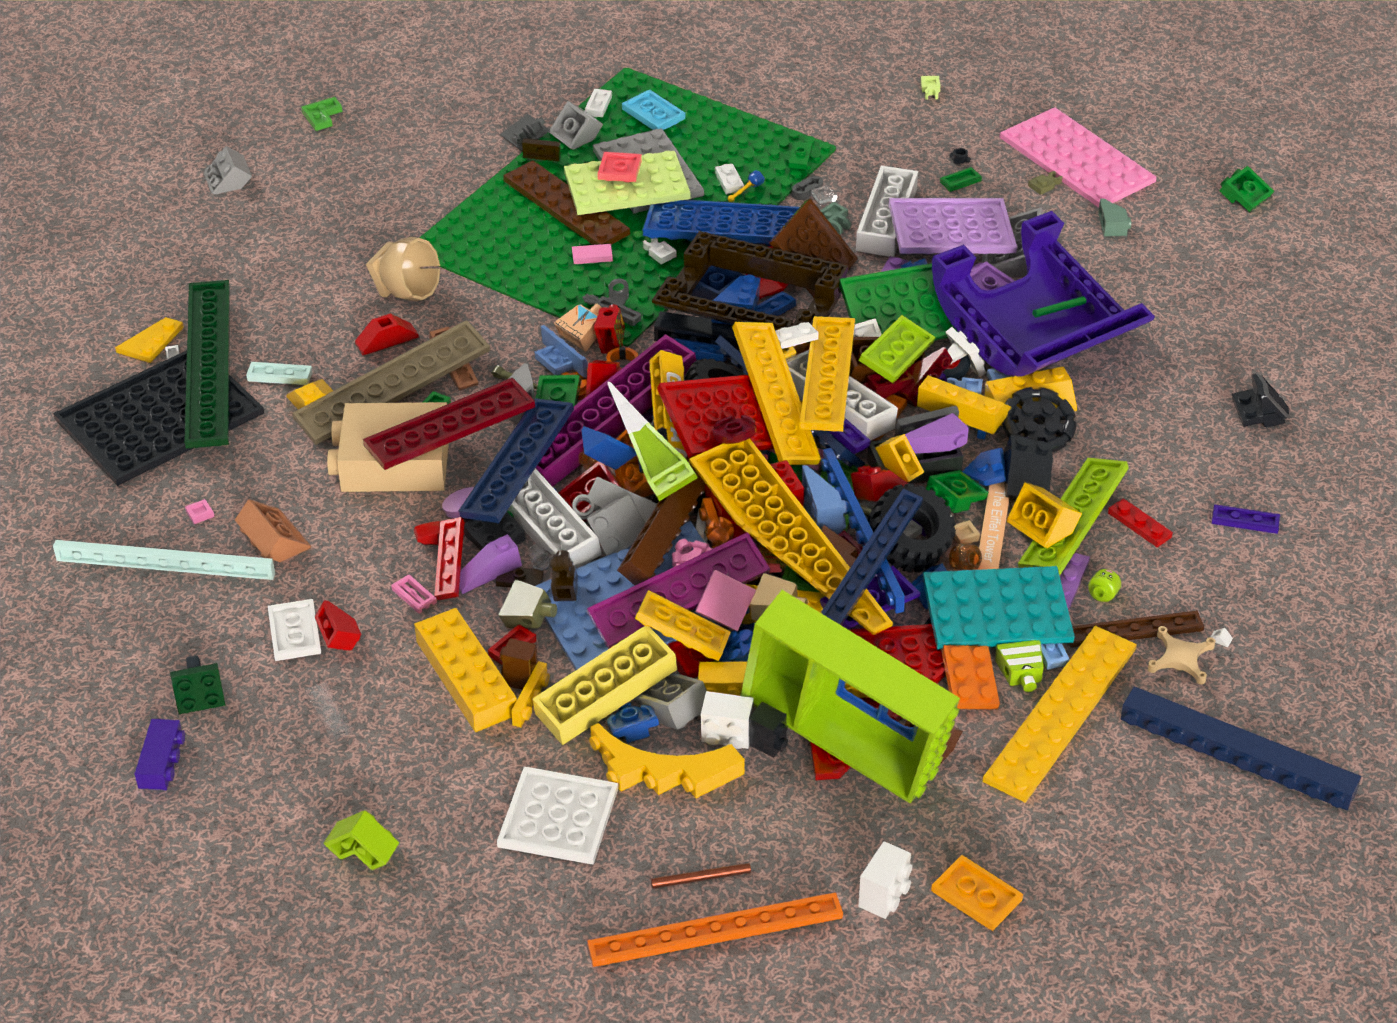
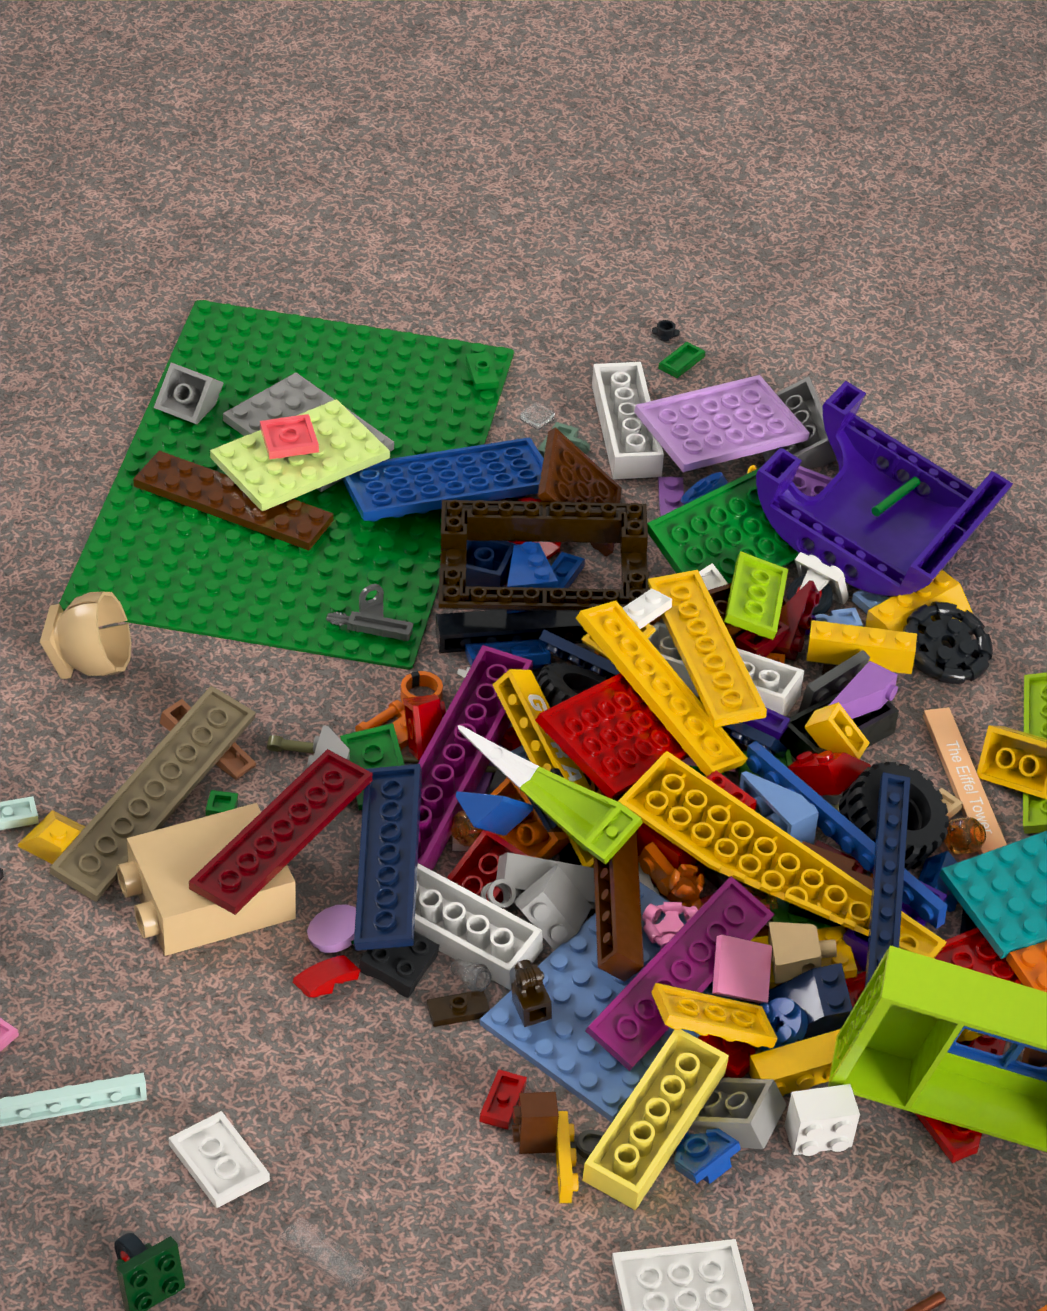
camera: 25 degrees left, 0 degrees up
(270, 531) = (111, 1036): nougat slope -> none
(337, 627) = (276, 1139): red slope -> none
(385, 333) = (103, 729): red slope -> none
(419, 604) = (337, 1070): bright pink tile -> none
(449, 559) = (365, 1008): plate -> none
(465, 669) = (468, 1148): yellow brick -> none
(493, 560) = (419, 997): medium lavender slope -> none
(526, 127) = (123, 413): dark grey hinge -> none
(526, 606) = (499, 1043): torso -> none
(541, 149) = (163, 434): dark brown plate -> none
(559, 356) = (342, 702): medium blue bracket -> none
(578, 326) = (347, 657): light nougat torso -> none
(592, 254) = (304, 558): bright pink tile -> none
(598, 102) = (197, 354): white plate -> none
(607, 321) = (389, 643): red torso -> none
(653, 110) = (272, 351): medium azure plate -> none
(661, 251) = (386, 535): white plate -> none
(663, 772) = (774, 1208): yellow arch -> none
(729, 178) = (414, 420): white plate -> none
(734, 430) = (651, 749): dark red tile -> none
(755, 179) = (448, 415): hinge -> none
(768, 730) = (878, 1117): black brick -> none
(804, 188) = (506, 408): dark grey beam -> none
(930, 86) = (581, 247): yellowish green plate -> none
(956, 490) = (905, 749): green plate -> none
(988, 467) = (924, 716): blue plate -> none
(1027, 462) = (967, 704): black slope -> none
(1043, 183) = (779, 344): olive plate -> none
(1078, 156) = (797, 302): bright pink plate -> none
(1113, 219) = (883, 371): sand green slope -> none
(1246, 188) = (1006, 300): green plate -> none

